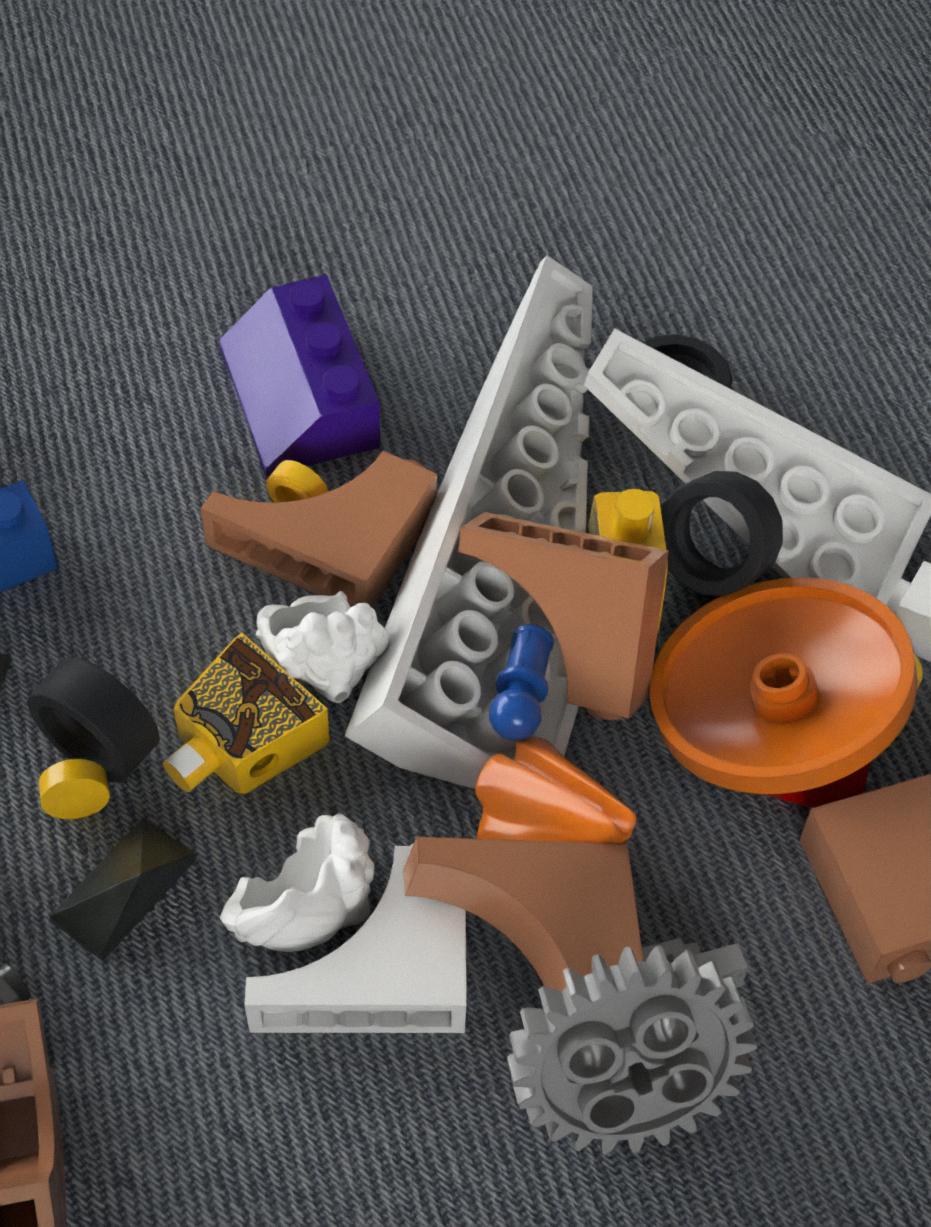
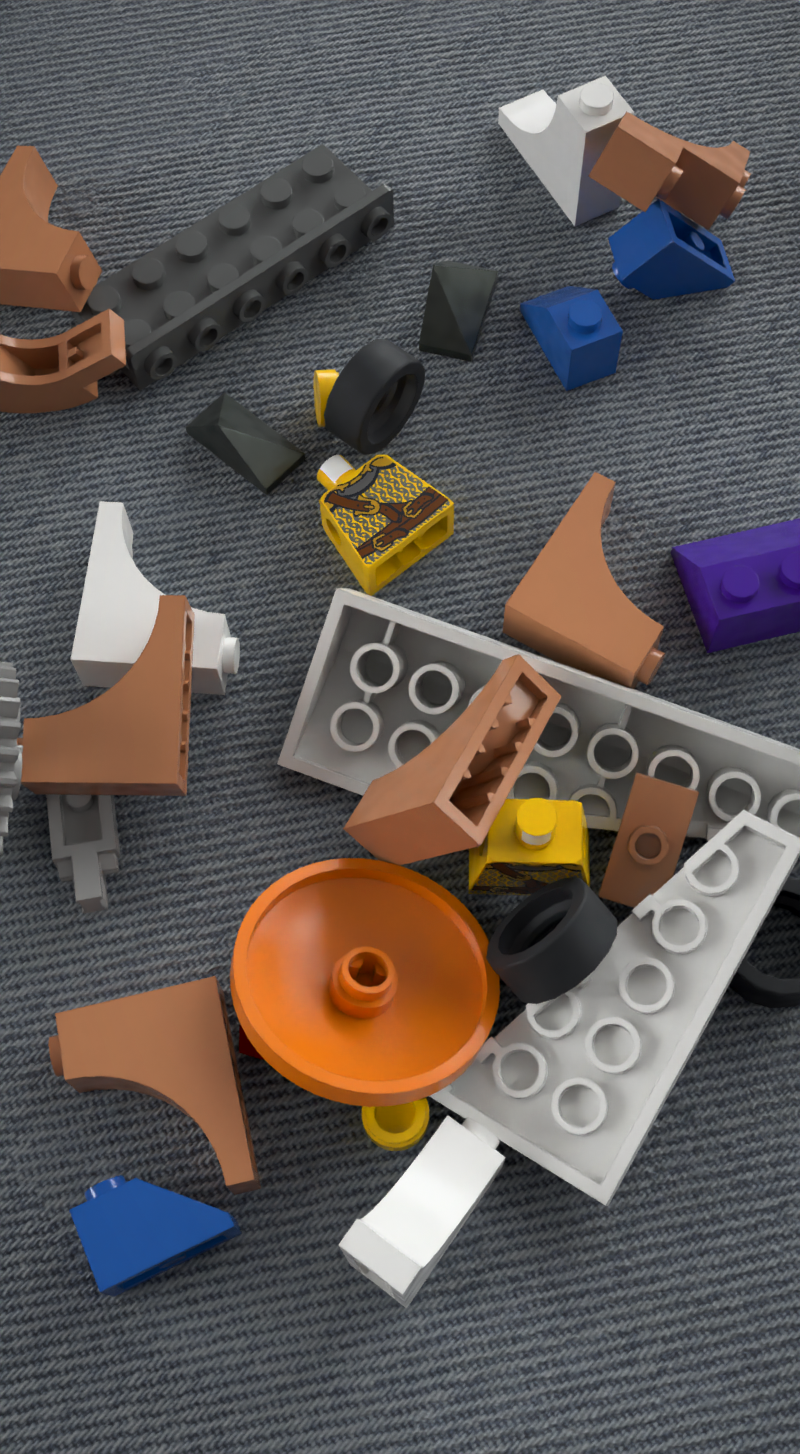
camera: 100 degrees right, 10 degrees up
(294, 482) = (634, 563): yellow tile -> none
(313, 896) = (196, 555): white hair -> none
(323, 641) = (450, 567): white hair -> none
(522, 684) = (340, 715): blue pin -> none
(547, 799) = (255, 751): orange hat -> none
(592, 465) = (648, 840): none -> nougat plate

